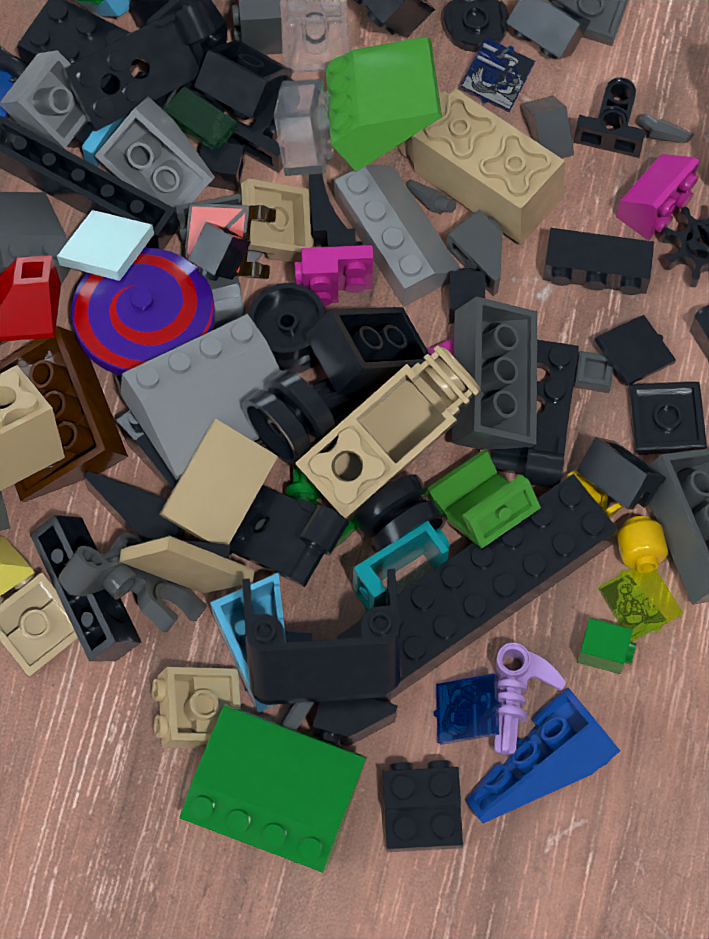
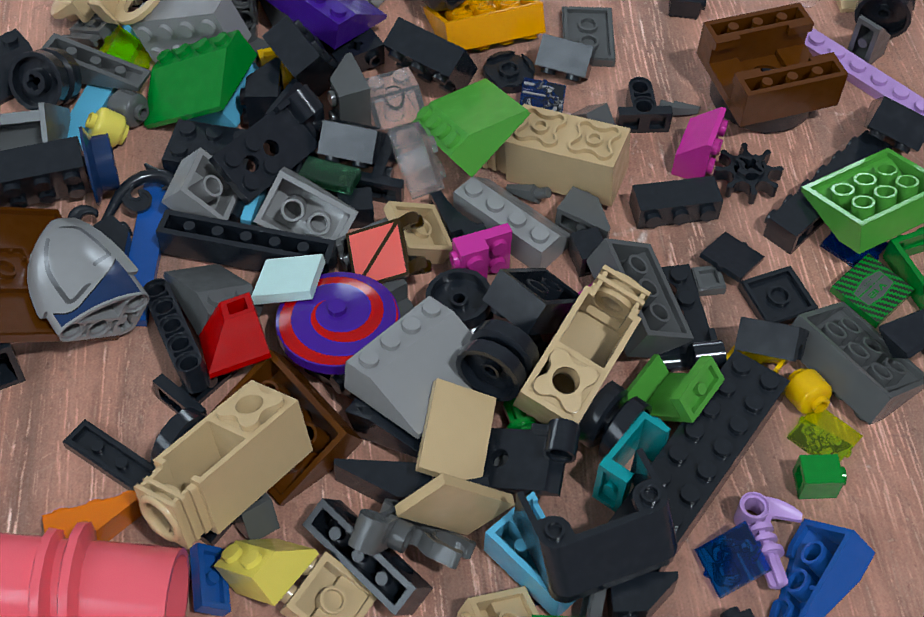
camera: 20 degrees left, 15 degrees down
(218, 252) = (386, 258): brick -> none

